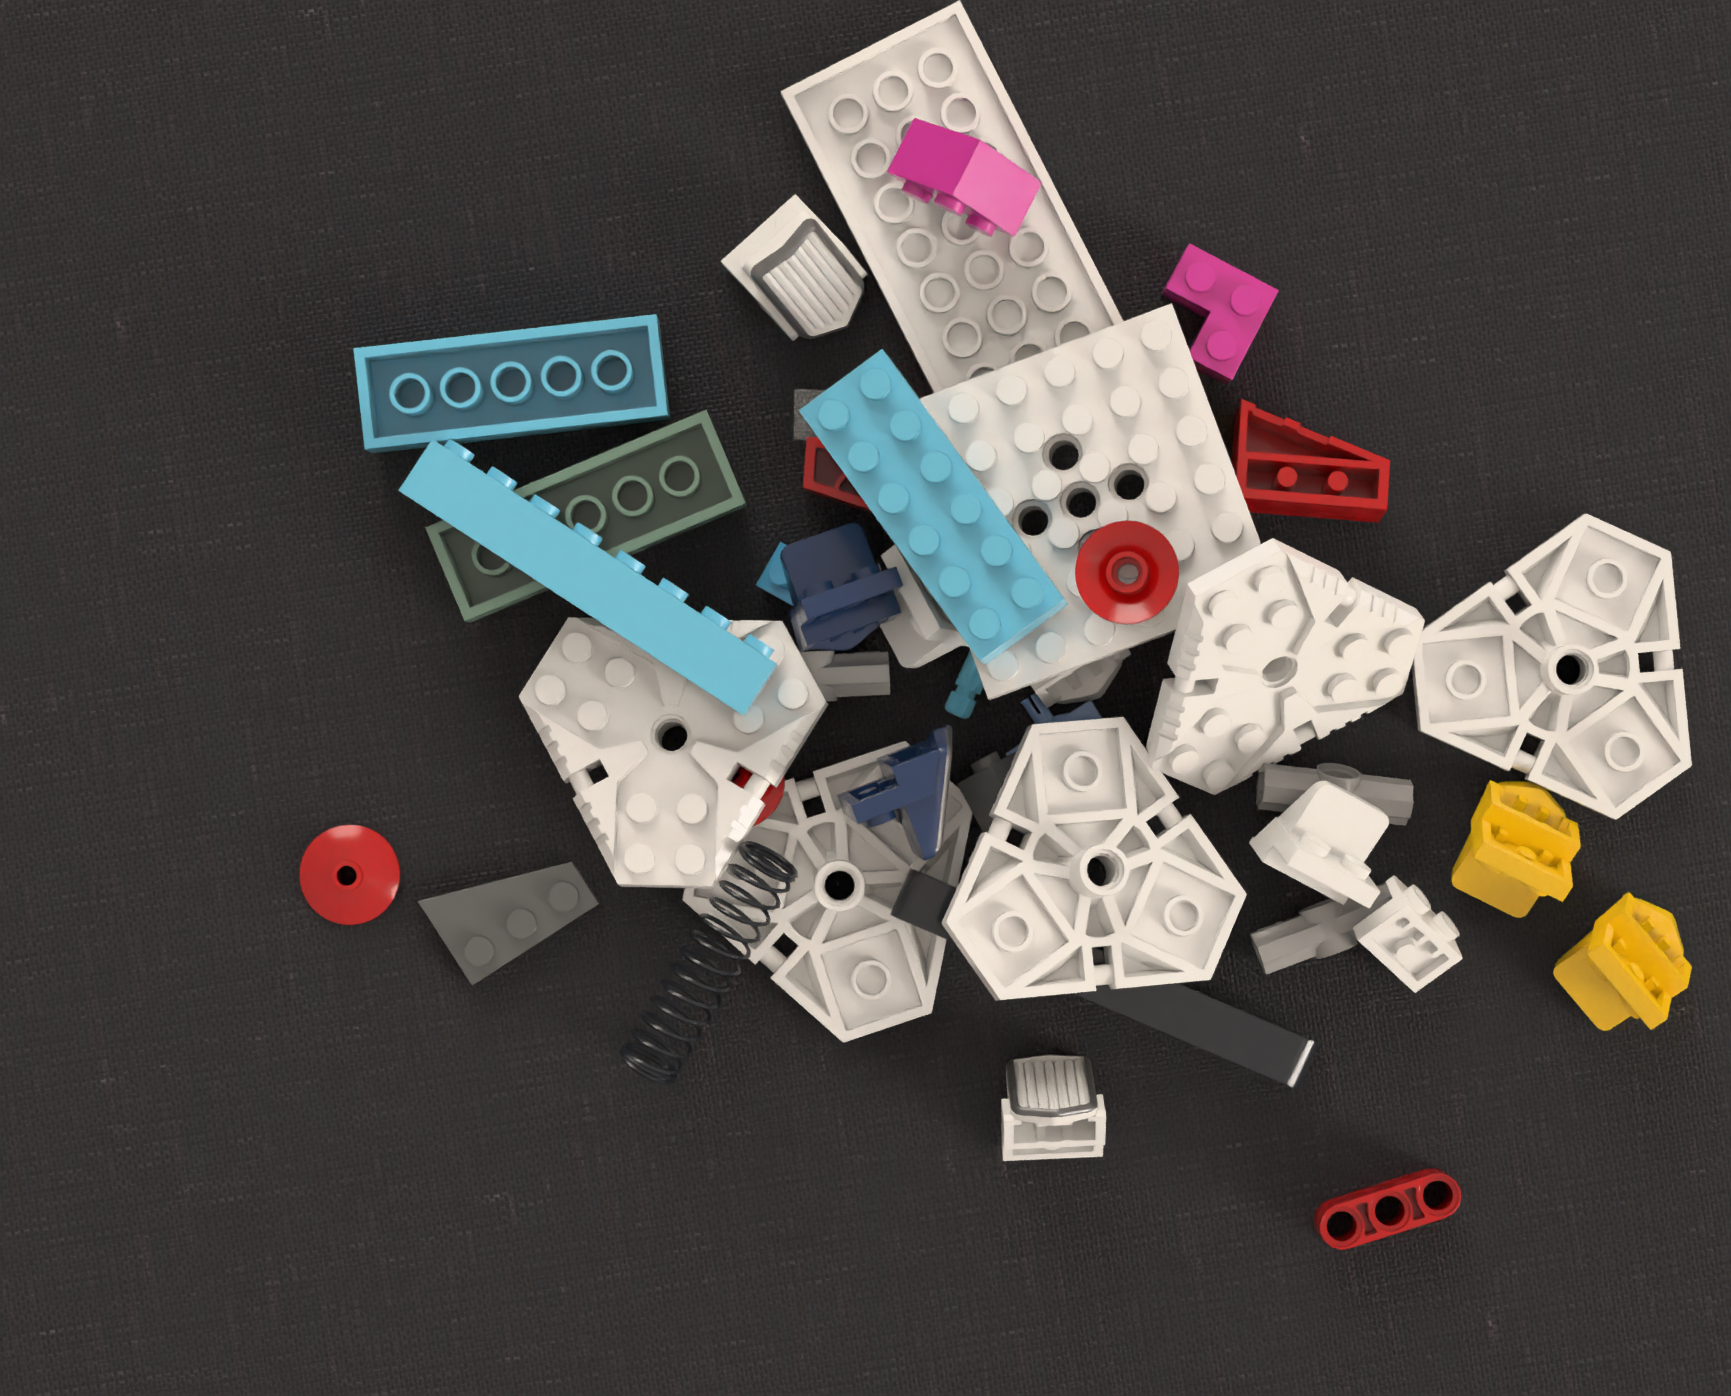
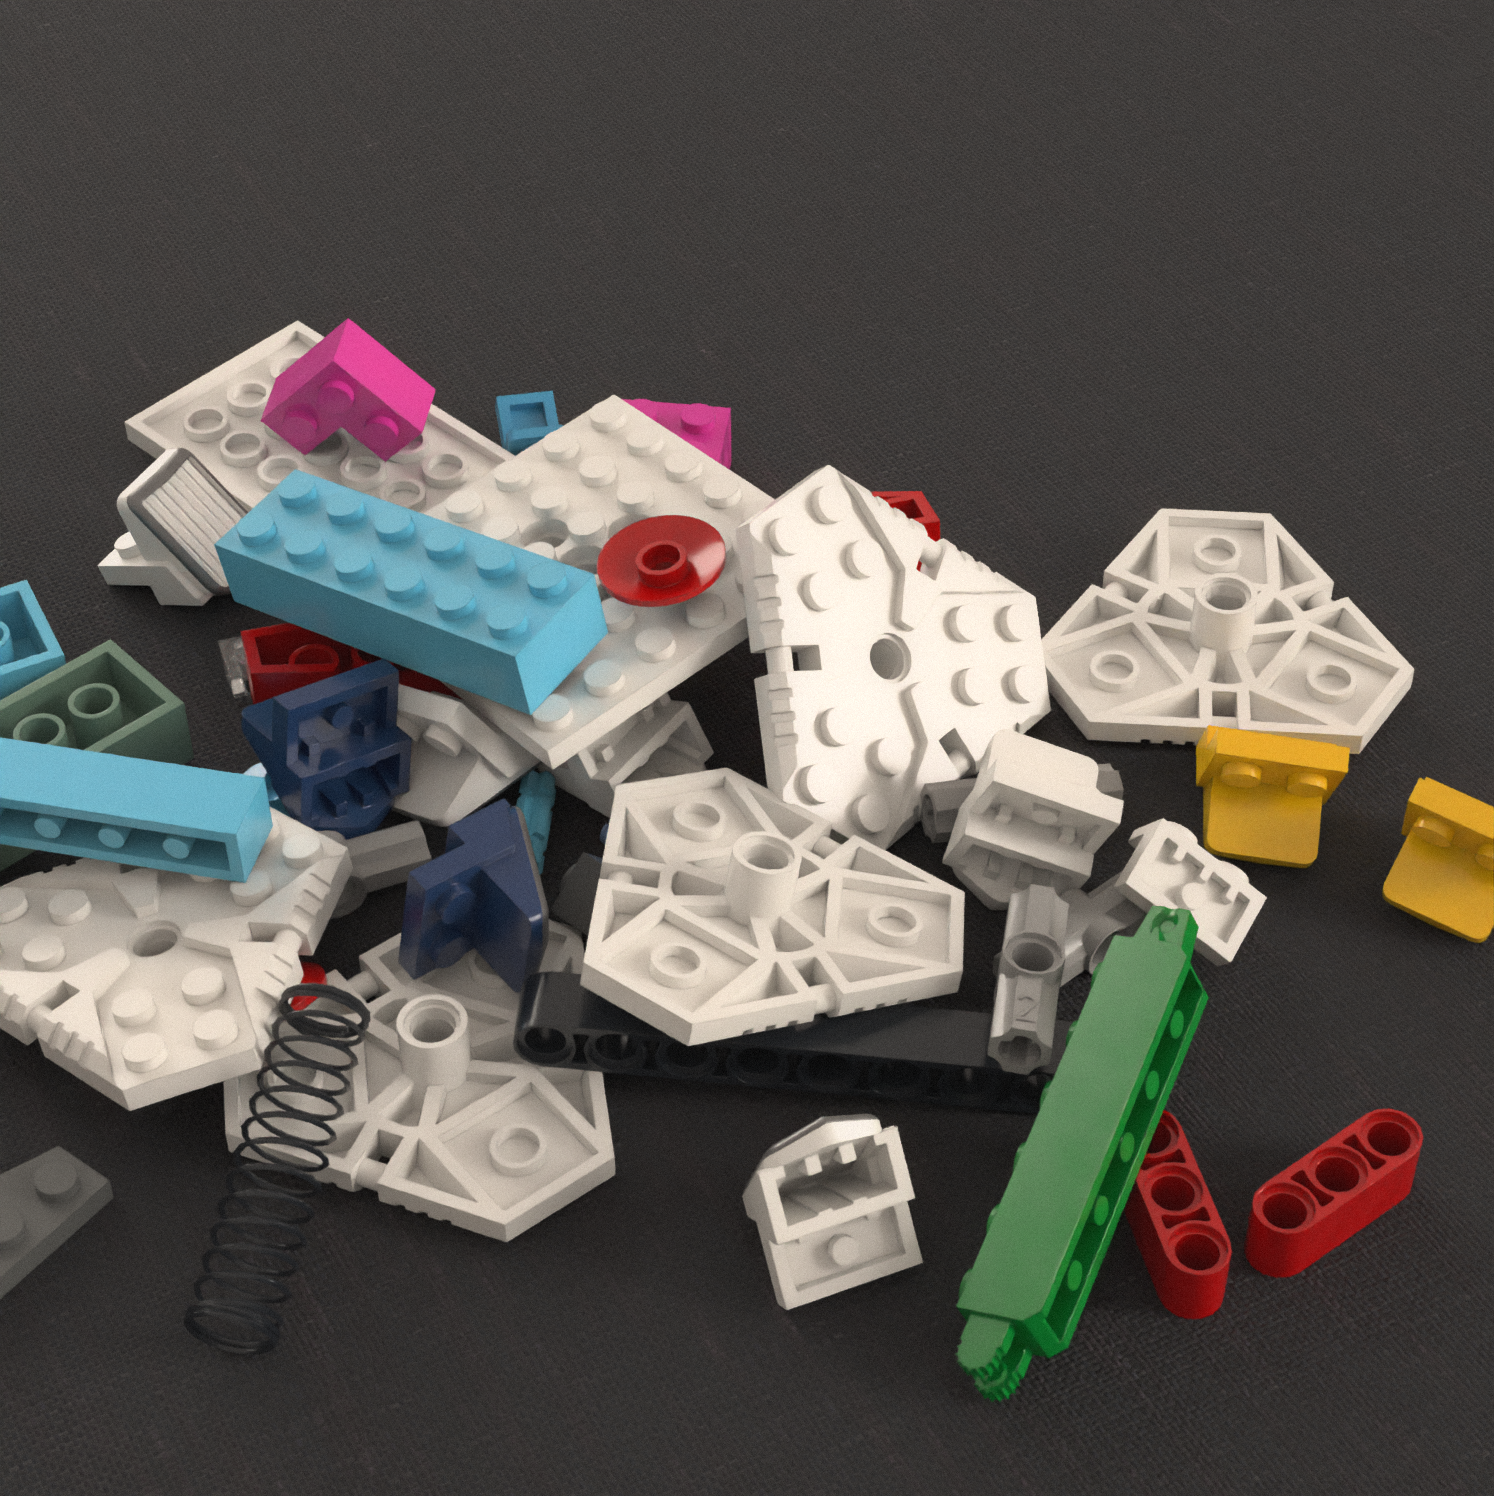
camera: 20 degrees left, 45 degrees down
(1113, 221) = (525, 419): none -> dark azure bracket
(1235, 1140) = (1081, 1154): none -> green hinge
(1271, 969) = (1029, 980): none -> light grey piece
(1279, 1208) = (1178, 1226): none -> red beam

